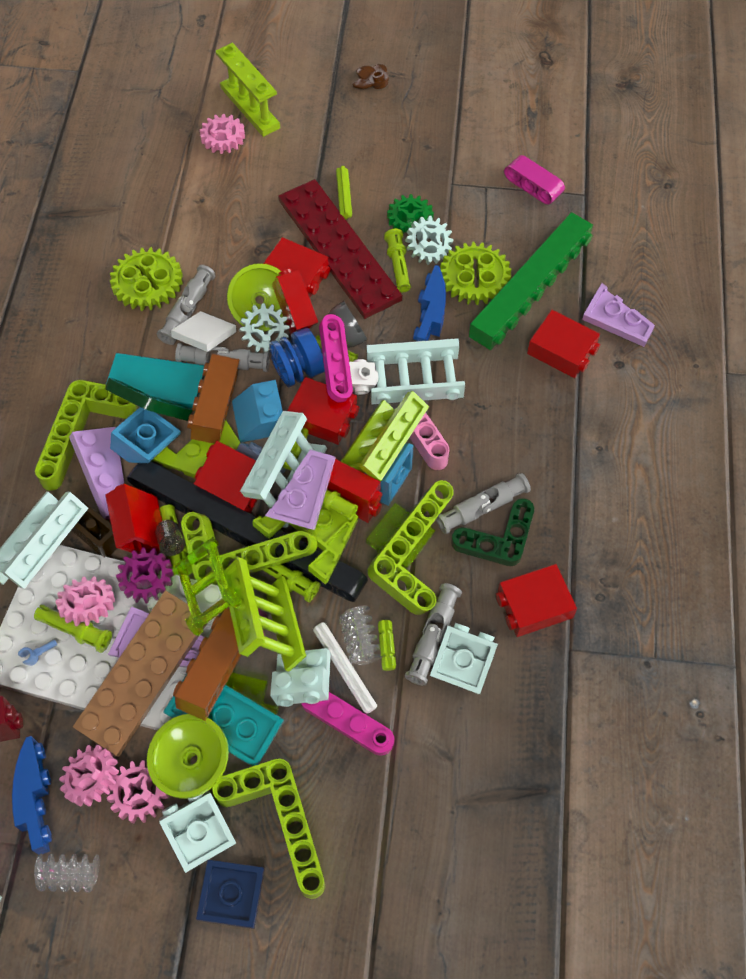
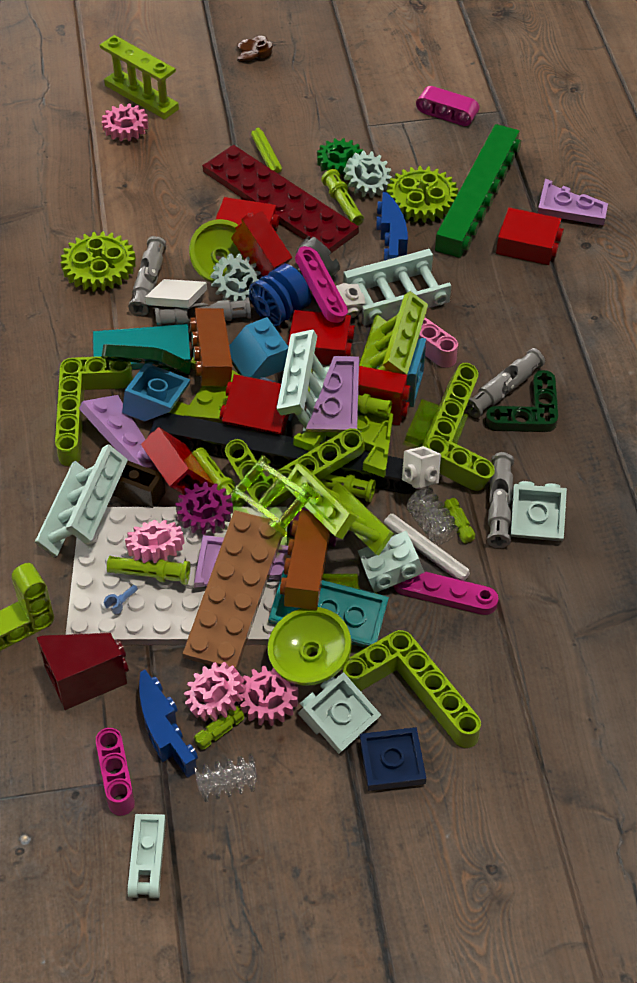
camera: 15 degrees left, 10 degrees down
(79, 814) = (218, 728): none -> lime axle
(169, 538) = (218, 469): clear smoke brick -> none
(361, 585) = (421, 467): none -> white brick
(536, 600) = (586, 450): red brick -> none

